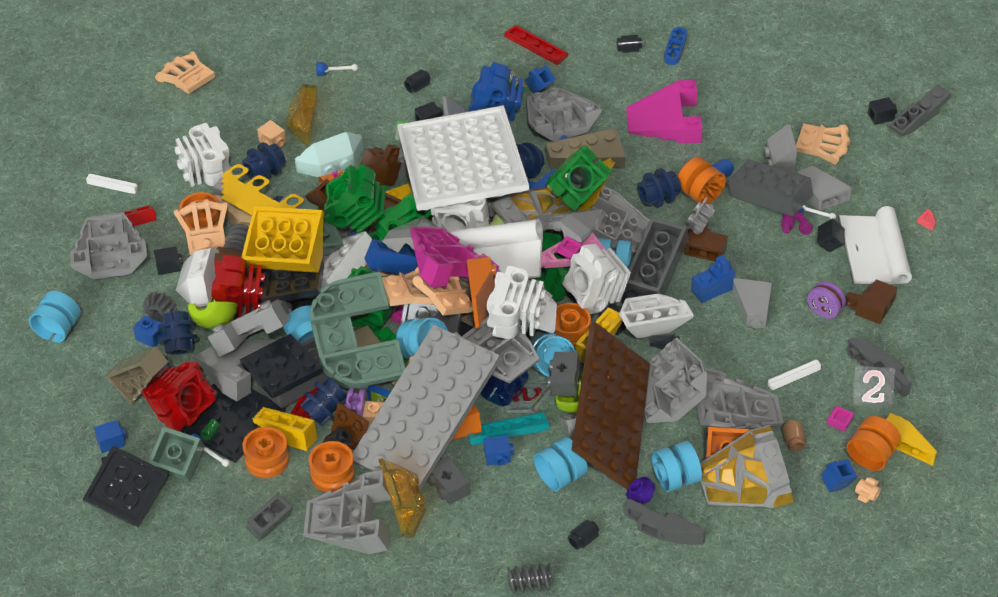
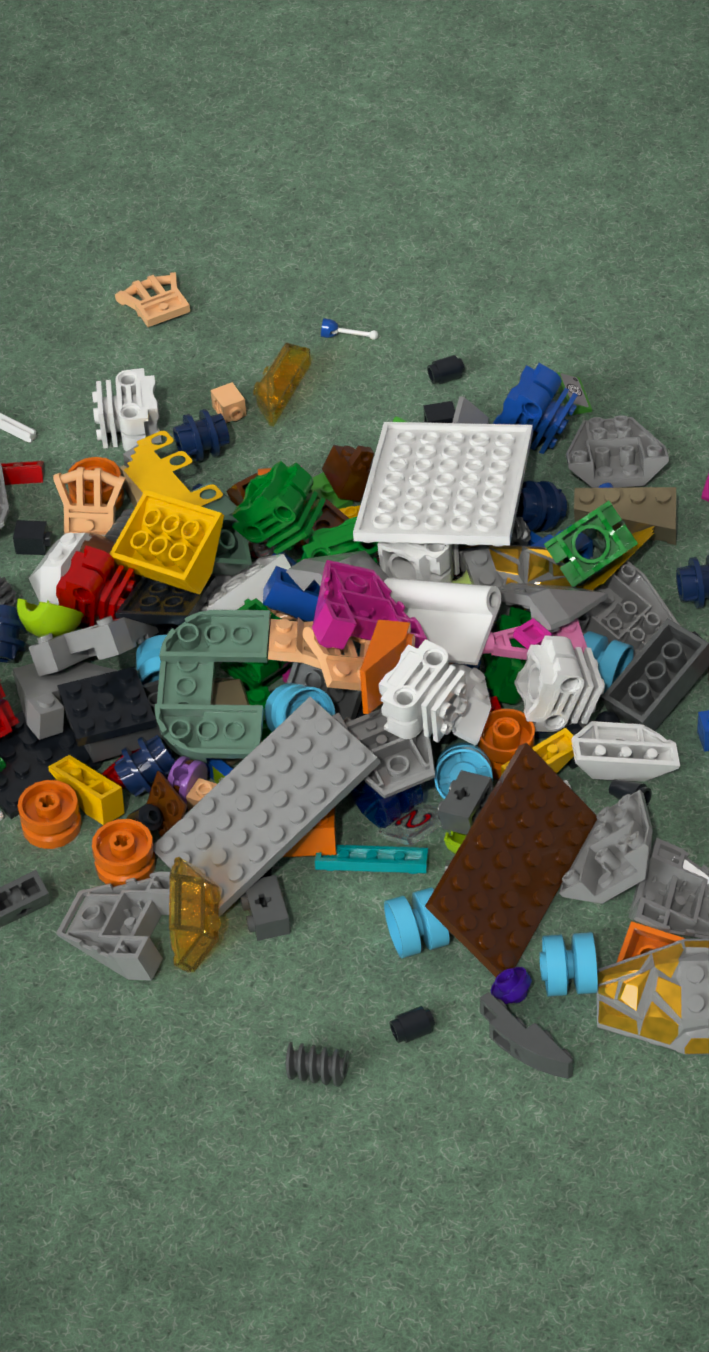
camera: 20 degrees right, 0 degrees up
(330, 155) = (294, 441): light aqua wedge -> none
(498, 450) = (346, 884): blue brick -> none
(536, 44) = (625, 353): red tile -> none
(539, 79) = (606, 399): blue brick -> none

